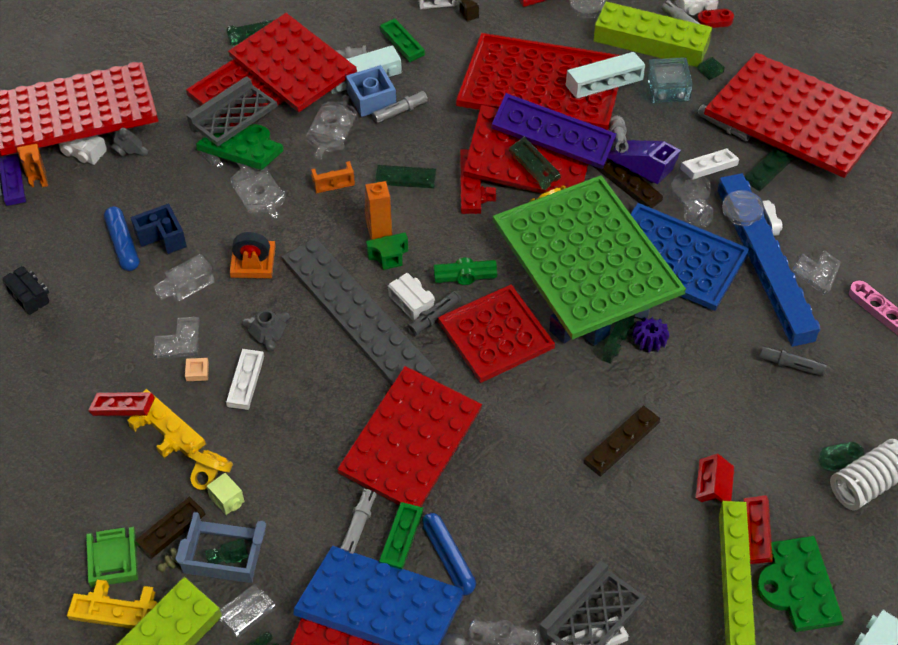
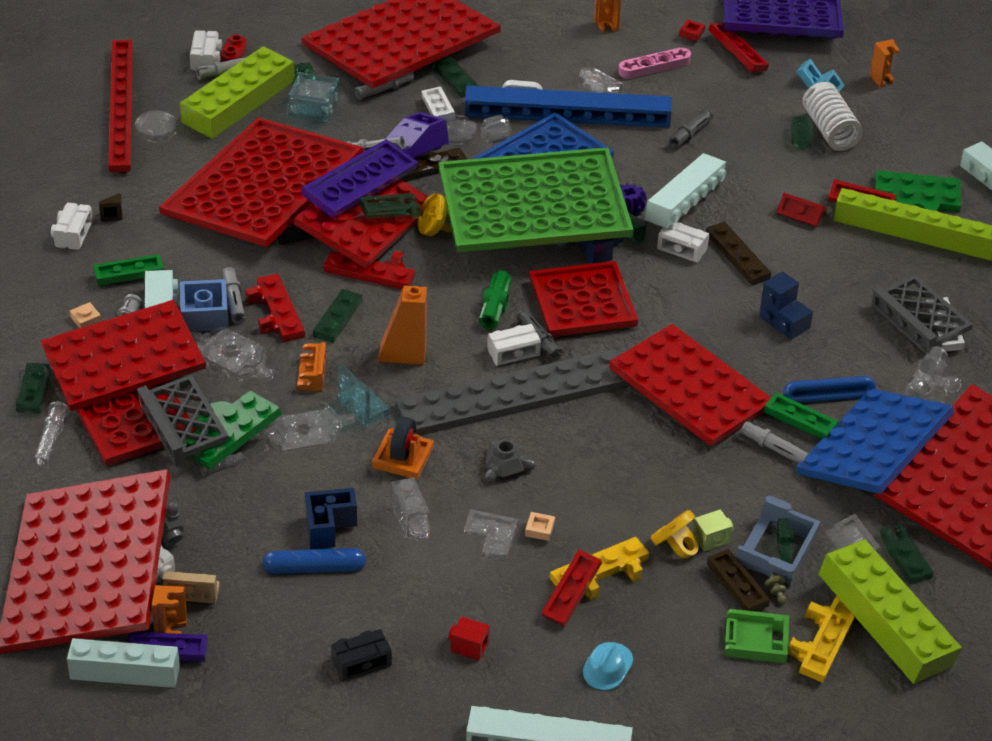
camera: 75 degrees left, 10 degrees down
(57, 352) = (469, 638): none -> red brick
(57, 454) = (607, 665): none -> medium azure piece
(70, 174) = (197, 586): none -> tan bracket
(213, 53) = (52, 426): none -> clear pin
(245, 379) = (568, 490): white plate -> none
(301, 214) = (359, 398): none -> clear light blue bracket
(343, 34) = (85, 315): none -> light nougat plate
(388, 250) = (442, 347): green brick -> none
(411, 132) = (282, 312): none -> red hinge
(544, 489) = (781, 307): none -> dark blue brick
(605, 75) = (290, 130): light aqua brick -> none
(611, 390) = (683, 241): none -> white brick
(675, 371) = (685, 190): none -> light aqua brick
(743, 207) = (513, 95): clear tile -> none

